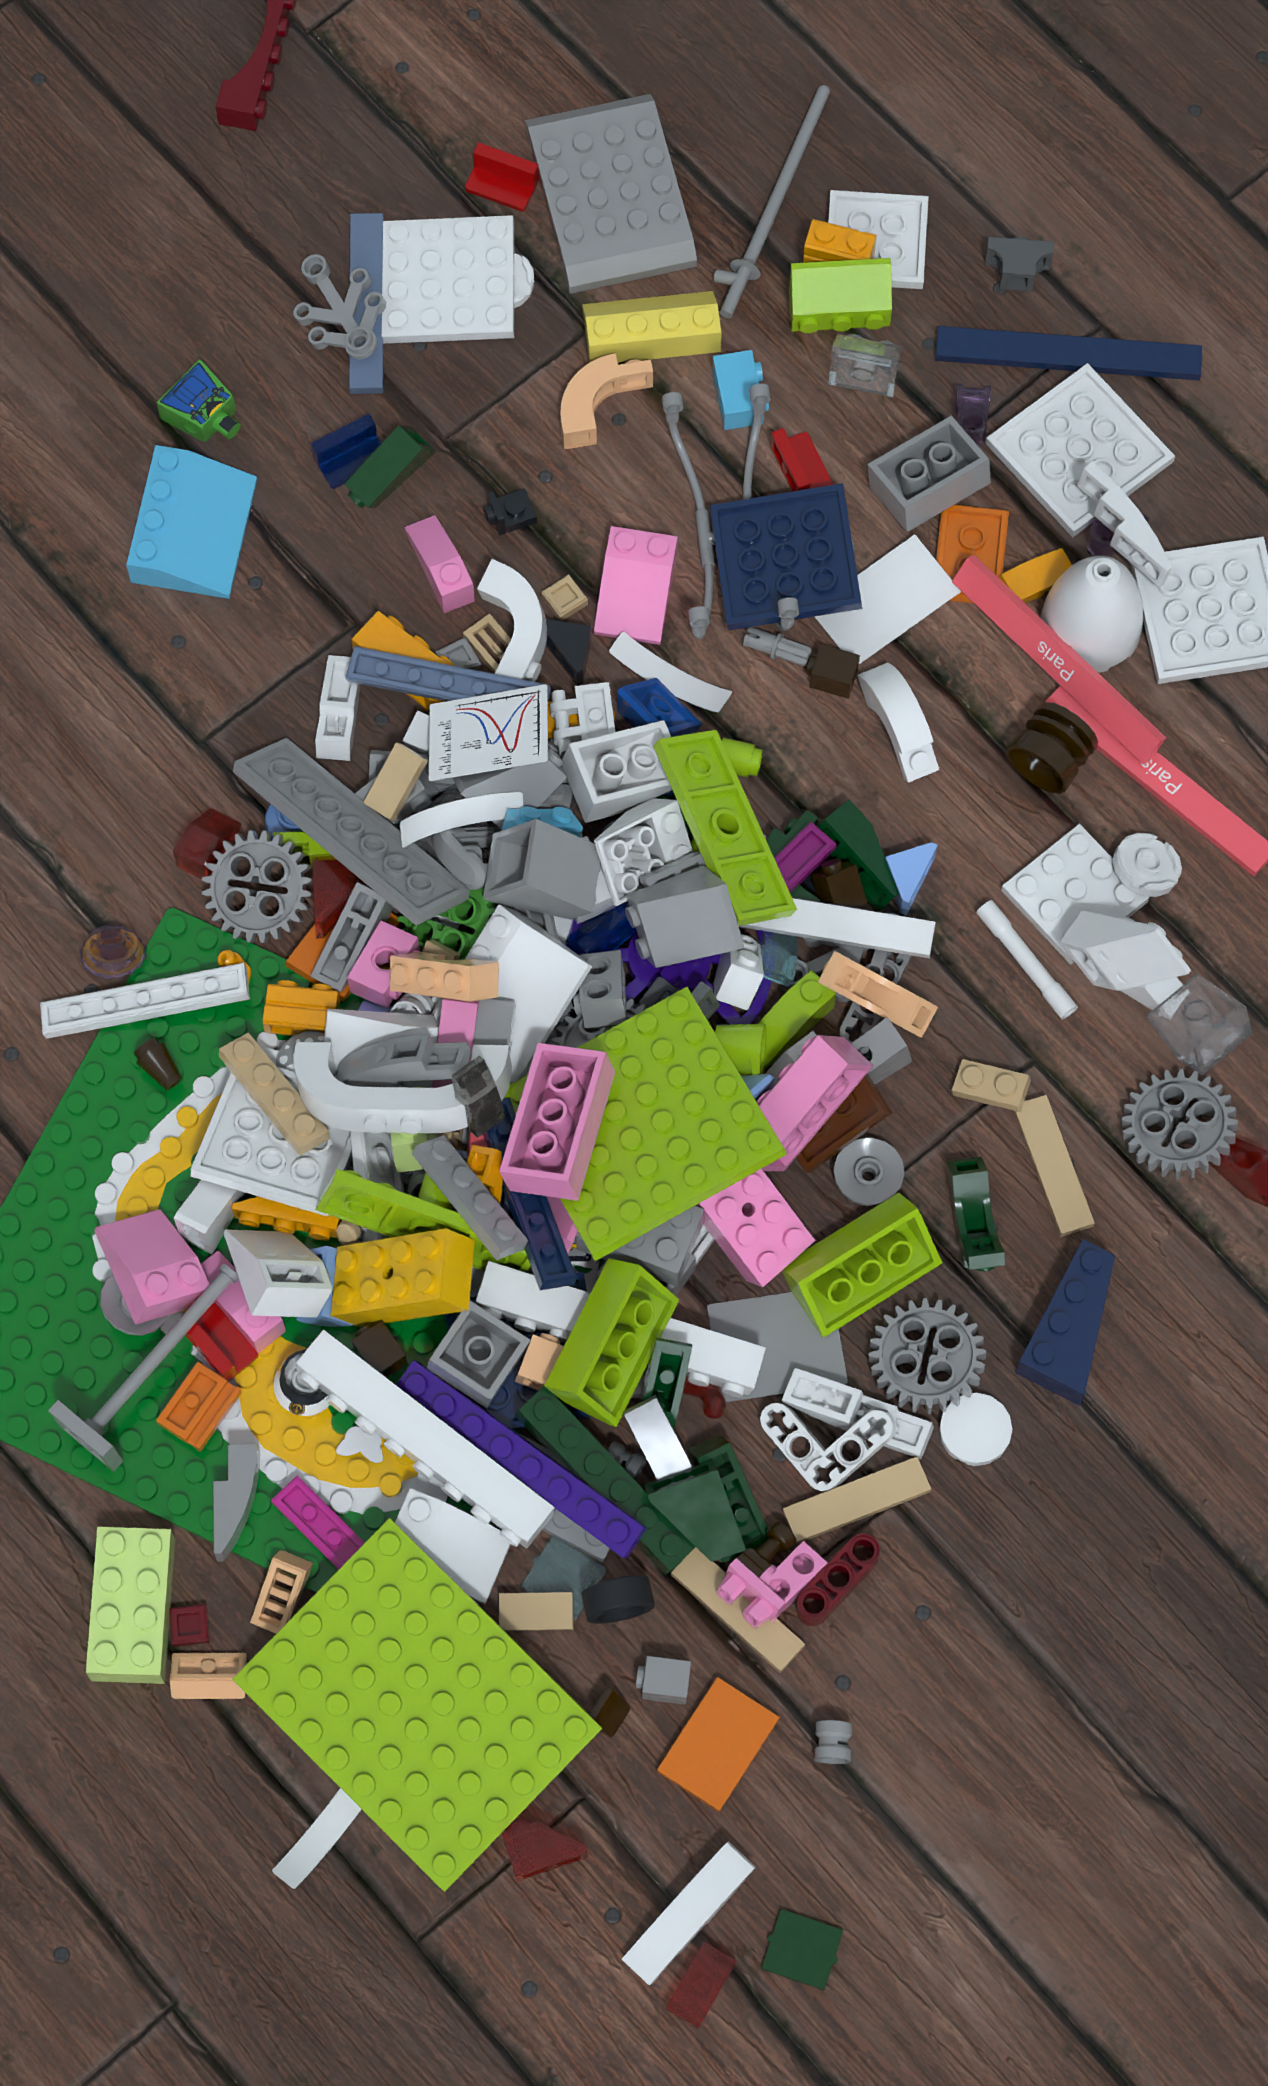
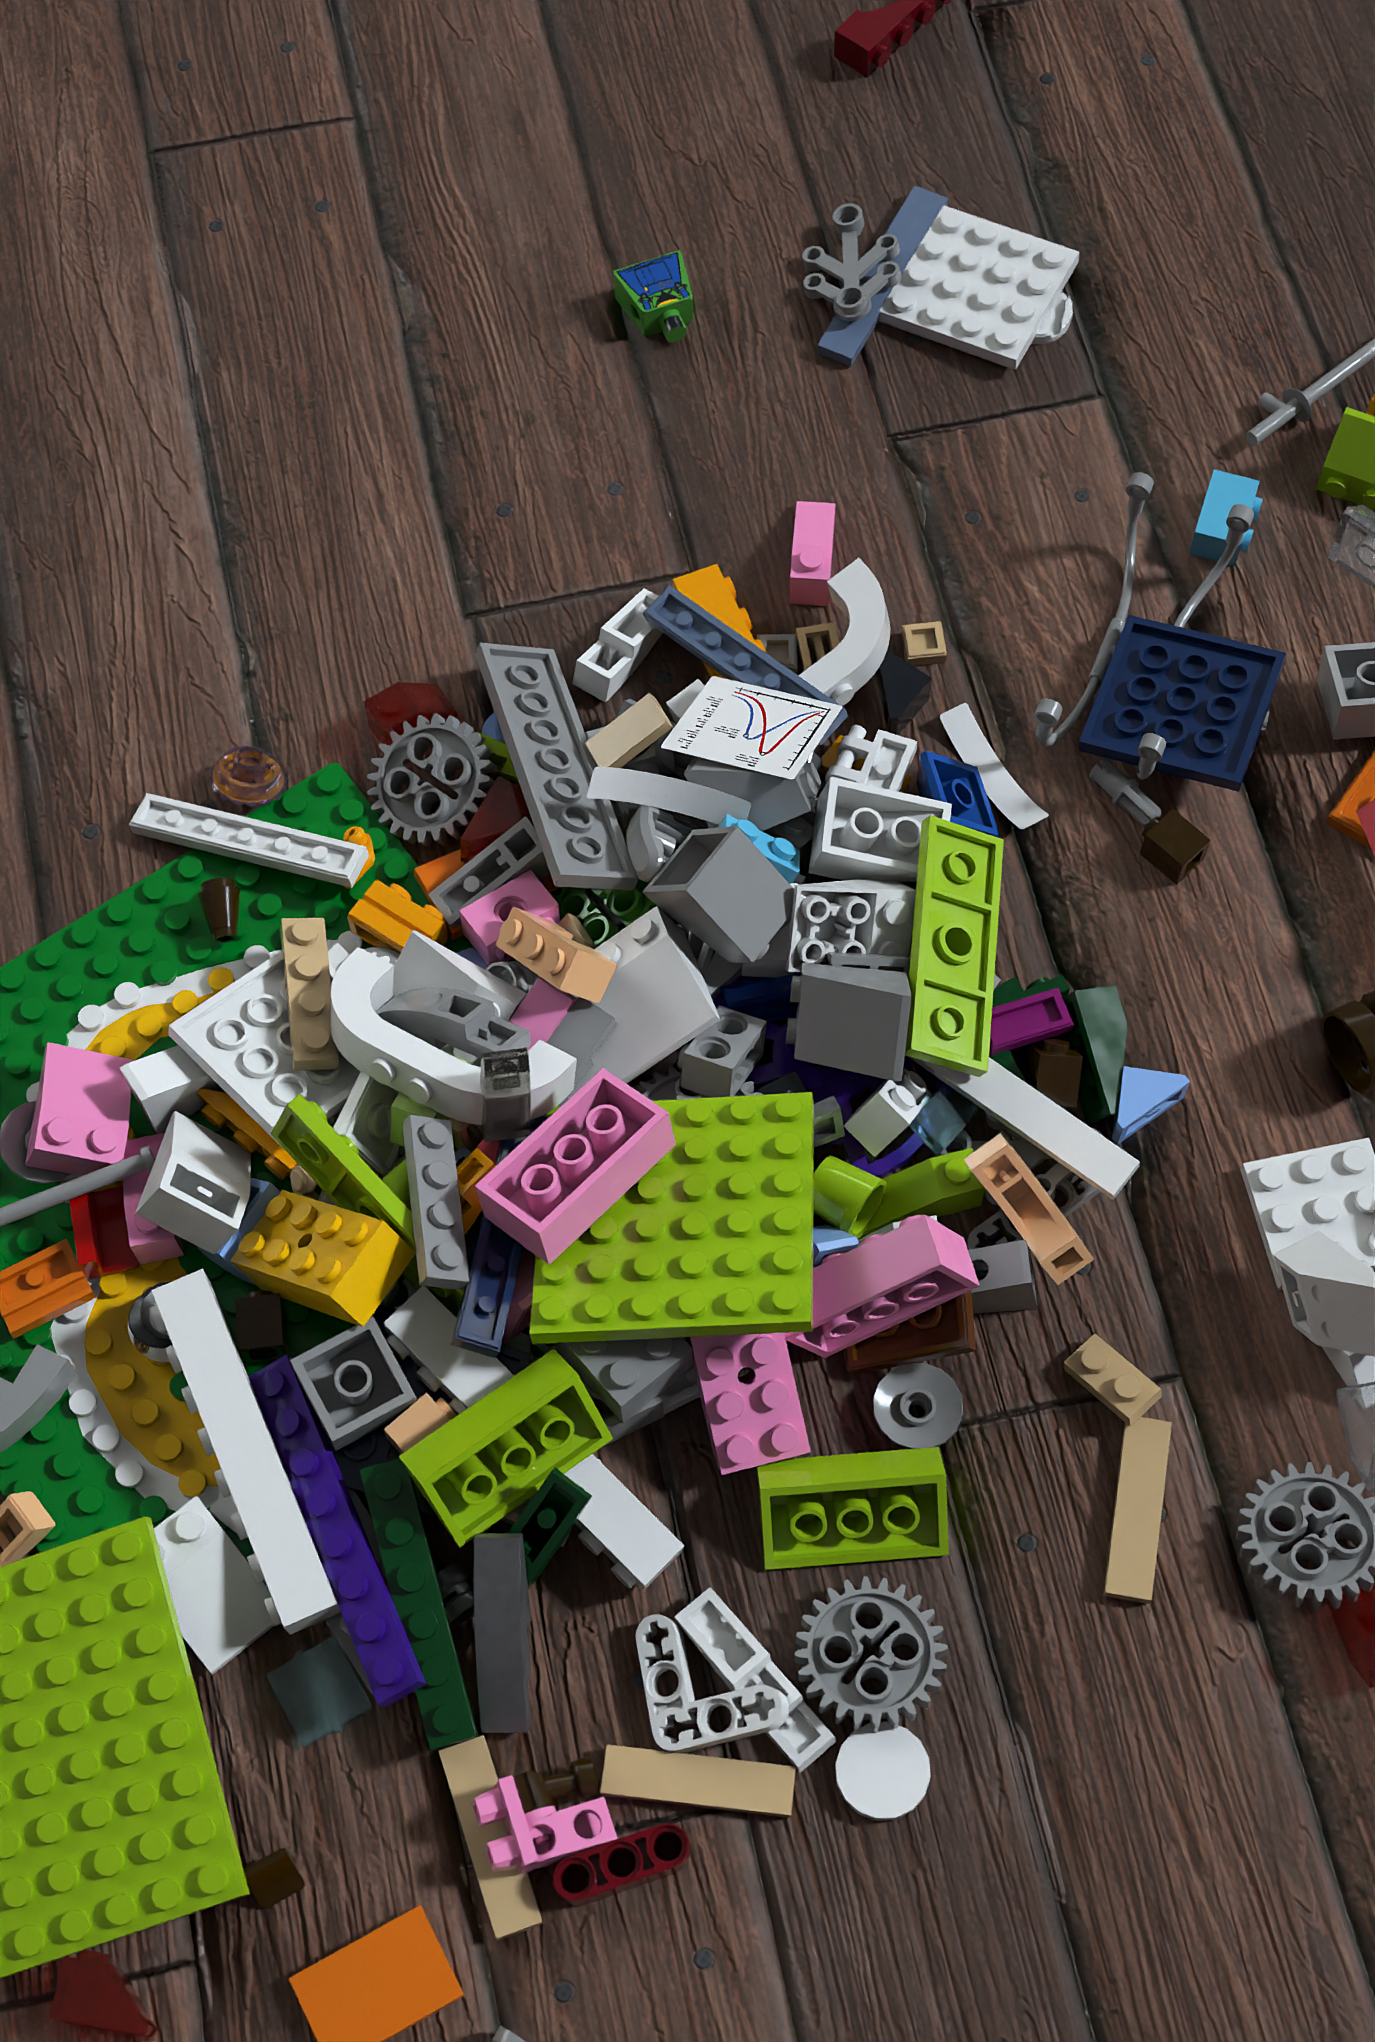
camera: 30 degrees right, 5 degrees down
(190, 524) = (580, 401): medium azure slope -> none
(317, 1522) = (86, 1478): dark pink tile -> none
(345, 450) = (782, 403): clear blue panel -> none
(358, 1441) = (180, 1417): white sticker -> none
(388, 467) = (812, 432): dark green slope -> none
(502, 177) = (1090, 215): red panel -> none
(509, 511) = (914, 533): black bracket -> none
(536, 1611) = (264, 1713): tan tile -> none
(590, 387) = (1067, 449): light nougat arch -> none
(611, 193) = (1194, 278): light grey slope -> none
(618, 1599) = (355, 1750): black tyre -> none
(636, 584) = (1007, 661): bright pink slope -> none
(653, 327) = (1164, 421): light yellow slope -> none
(664, 1680) = (357, 1874): light grey brick -> none
(699, 1510) = (502, 1696): dark green slope -> none
(710, 1396) = (597, 1569): clear red arm -> none
(742, 1502) = (555, 1693): dark green slope -> none
(743, 756) = (1021, 888): lime brick -> none
(789, 1341) = (719, 1549): light grey sticker -> none
(799, 461) = (1252, 613): red panel -> none
(894, 597) = (1277, 801): white sticker -> none
(901, 714) = (1222, 931): white arch -> none
(973, 1215) = (1011, 1517): dark green arch -> none
(1050, 989) = (1239, 1306): white piece -> none
(1067, 1334) = (1050, 1712): dark blue wedge -> none

